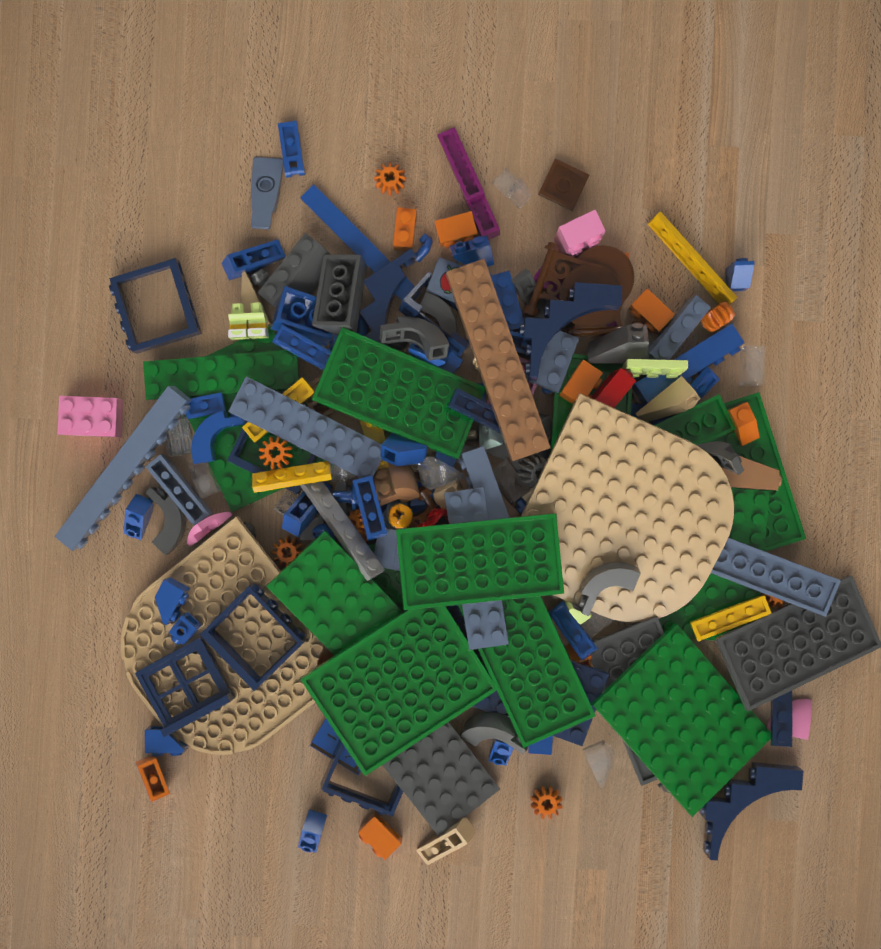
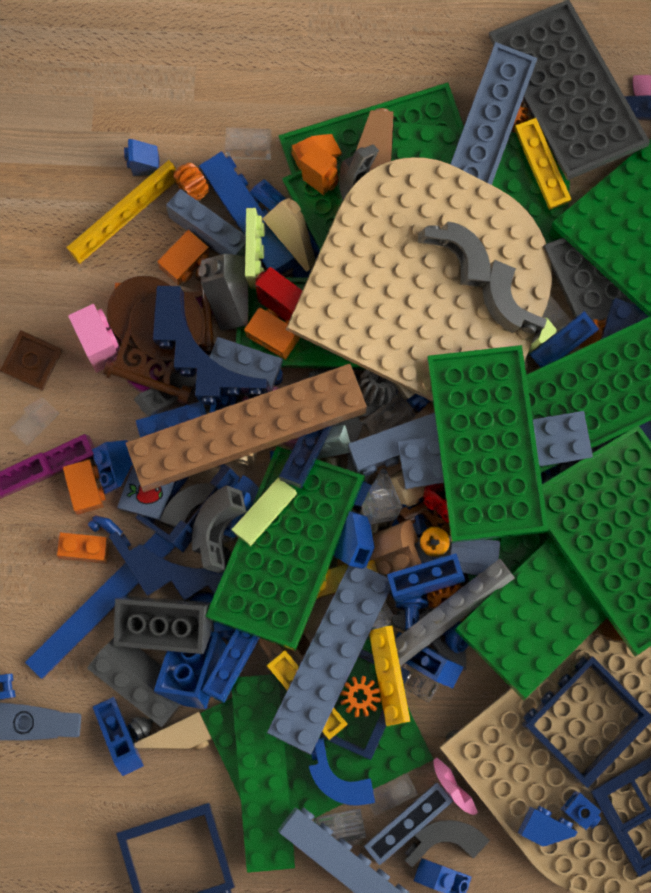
camera: 90 degrees left, 10 degrees down
(206, 405) = (302, 789): blue plate -> none
(248, 325) = (196, 726): yellowish green hips -> none
(285, 545) = (484, 694): orange gear -> none
(388, 172) = (12, 571): orange gear -> none
(428, 375) = (264, 511): none -> yellowish green tile
(650, 551) = (467, 248): none -> dark grey arch
(724, 425) = (319, 169): none -> orange brick

